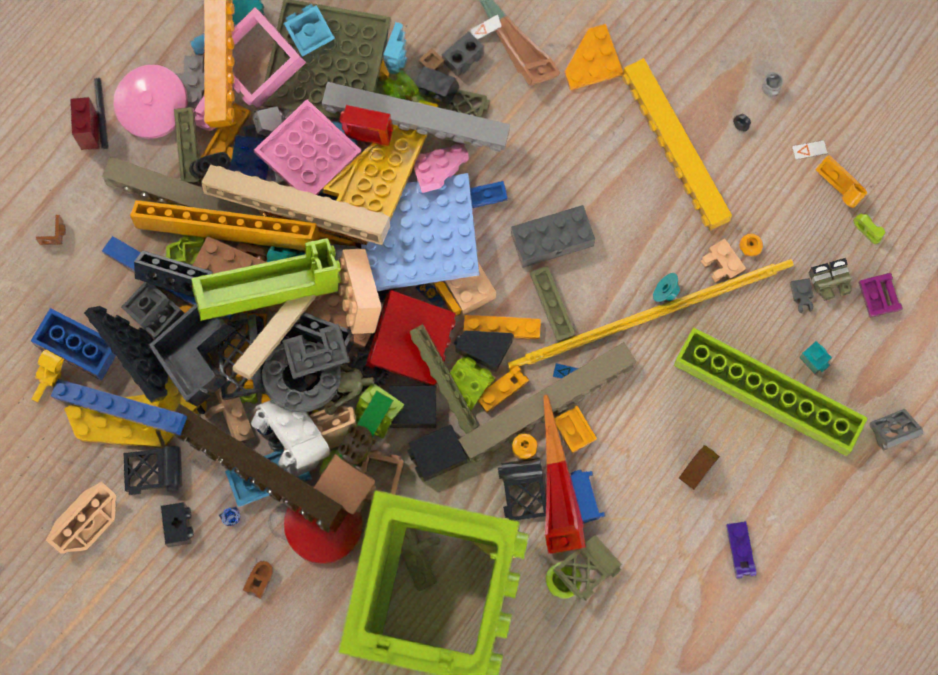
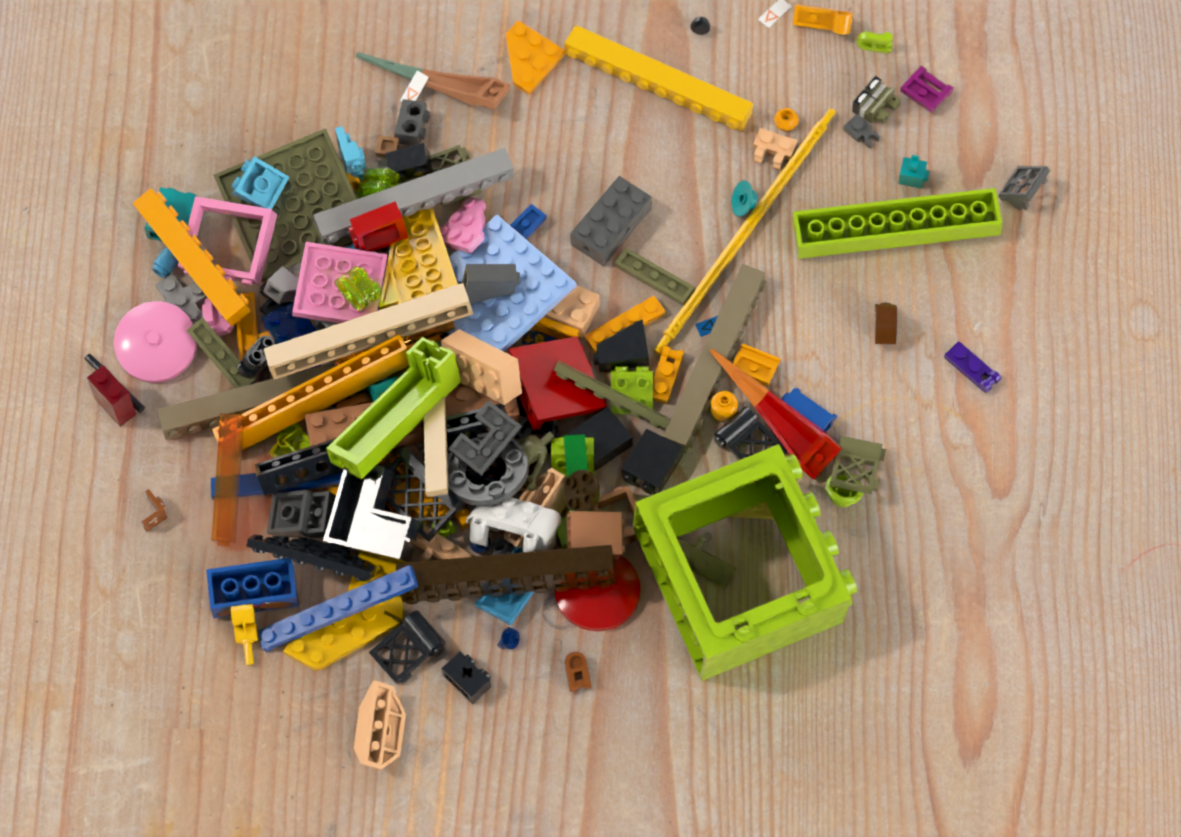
camera: 35 degrees left, 10 degrees down
(116, 247) = (227, 479): none -> clear orange brick
(322, 154) = (358, 288): none -> clear neon green brick
(415, 226) = (489, 281): none -> dark grey slope

